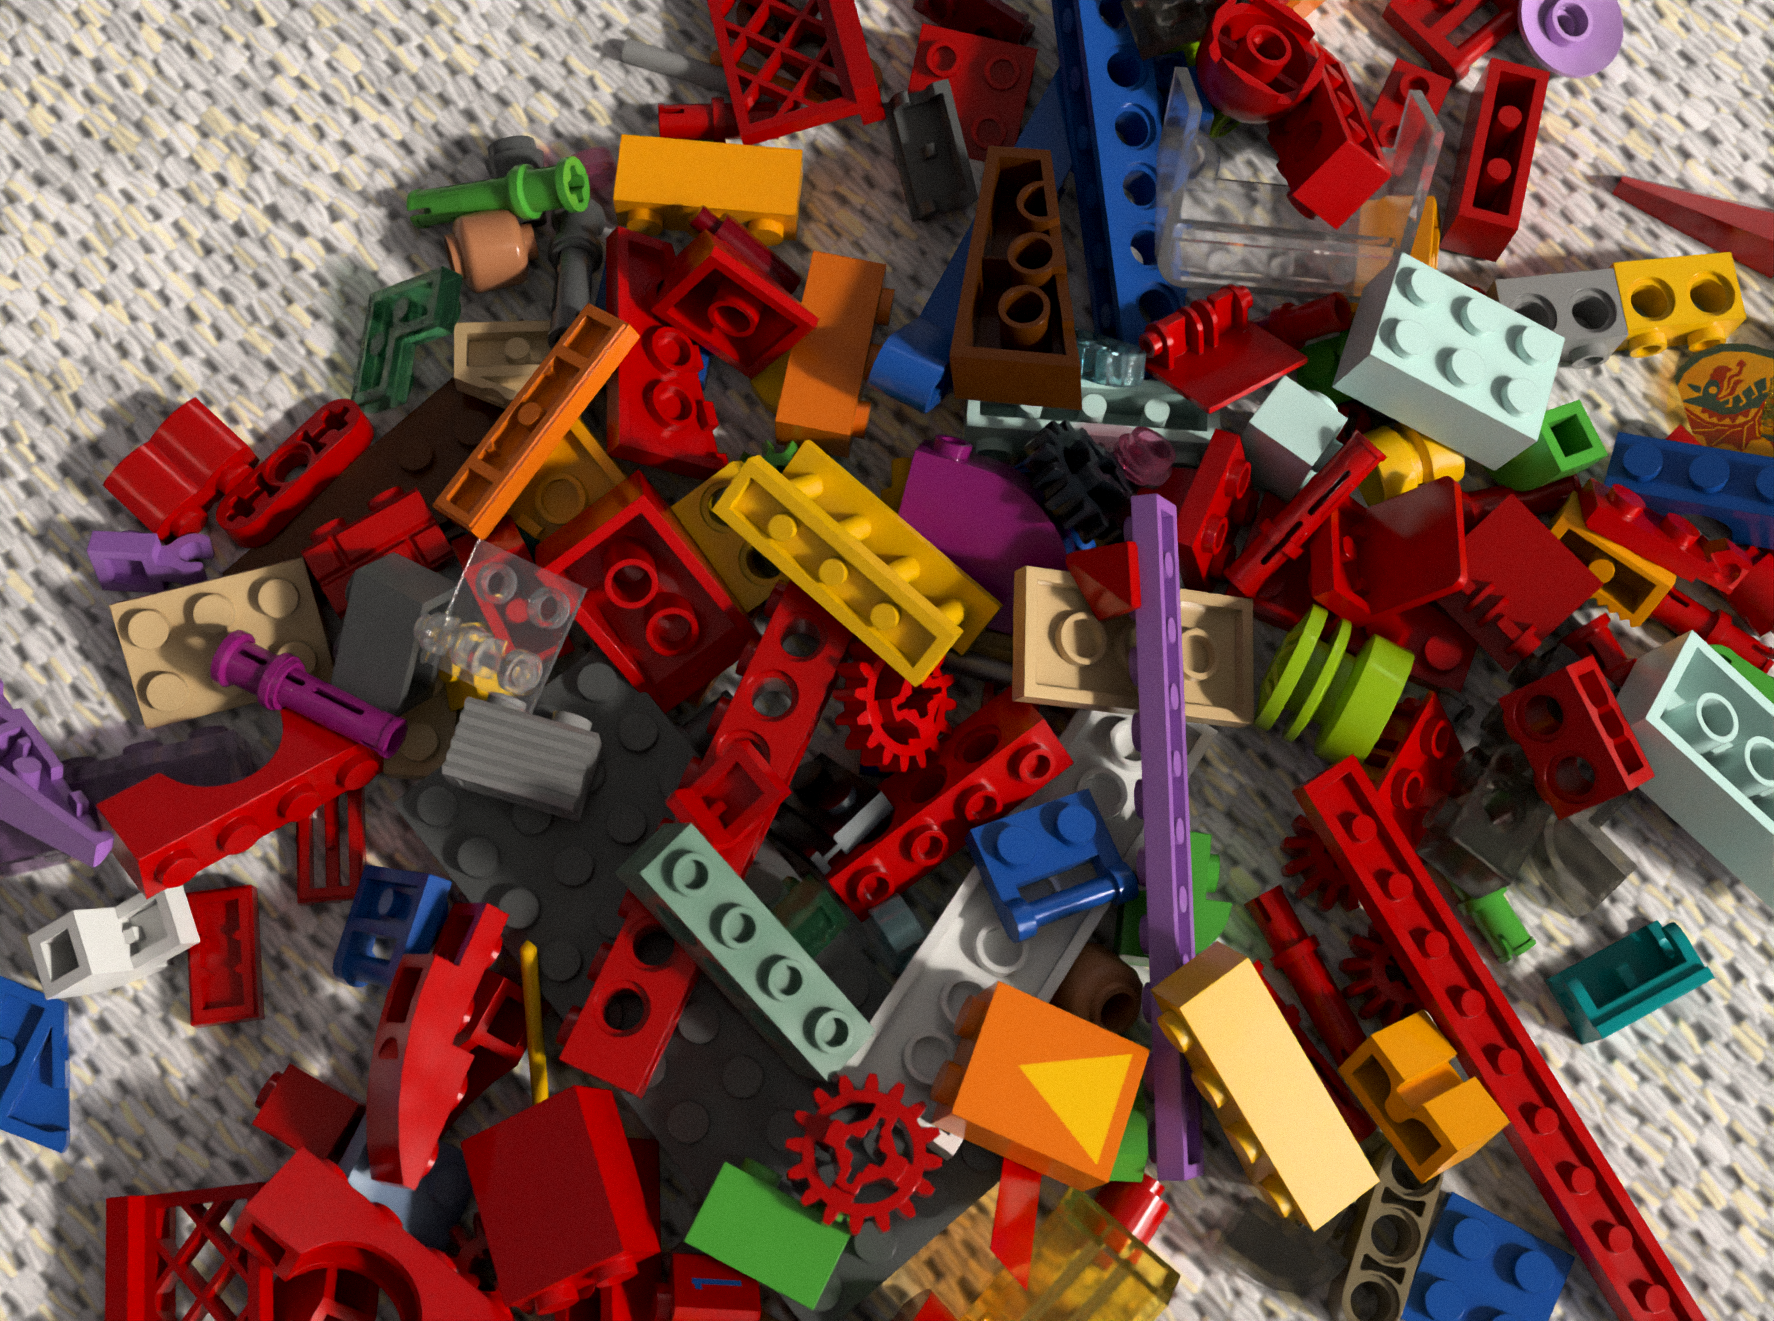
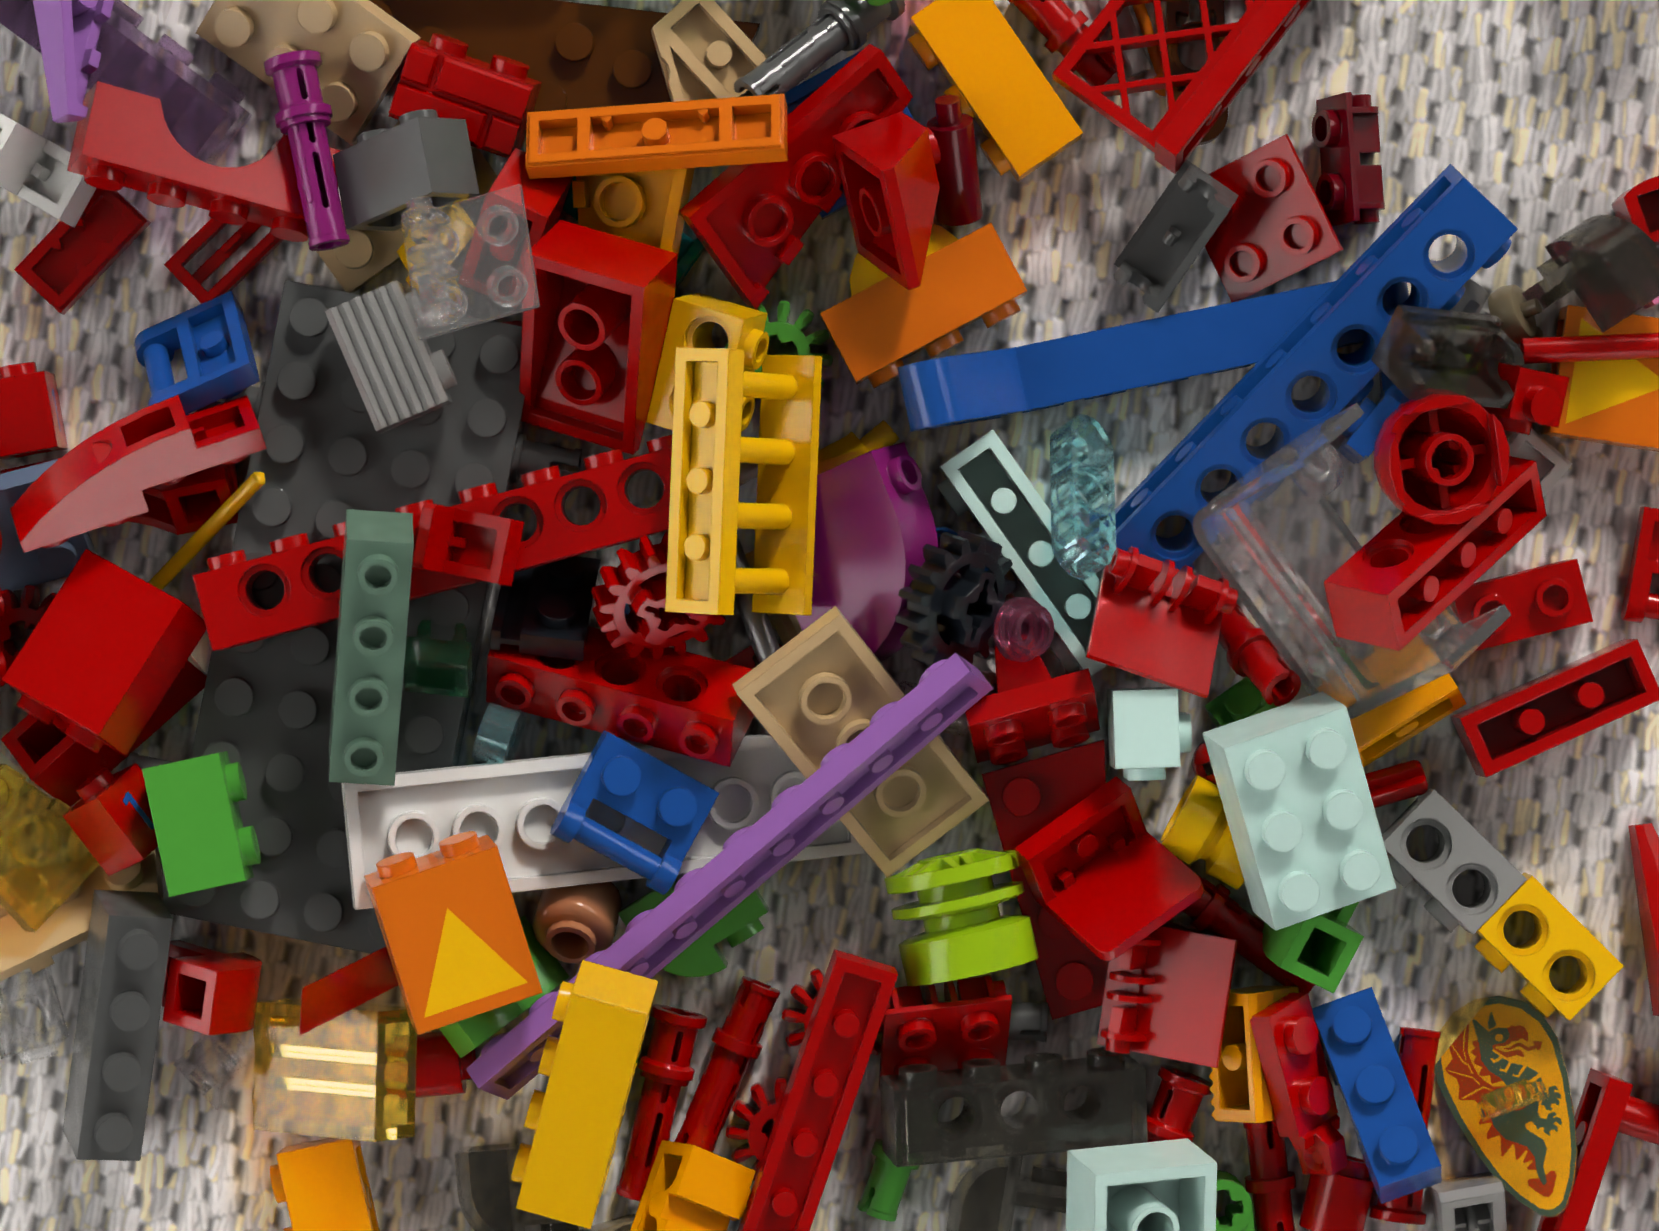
camera: 60 degrees right, 15 degrees up
(893, 1170) = (304, 876): red gear -> none
(1015, 302) = (1070, 423): reddish brown wedge -> none
(1108, 578) = (881, 684): red slope -> none
(1303, 515) = (1057, 787): red pin -> none
(1590, 730) = (1046, 1134): red brick -> none

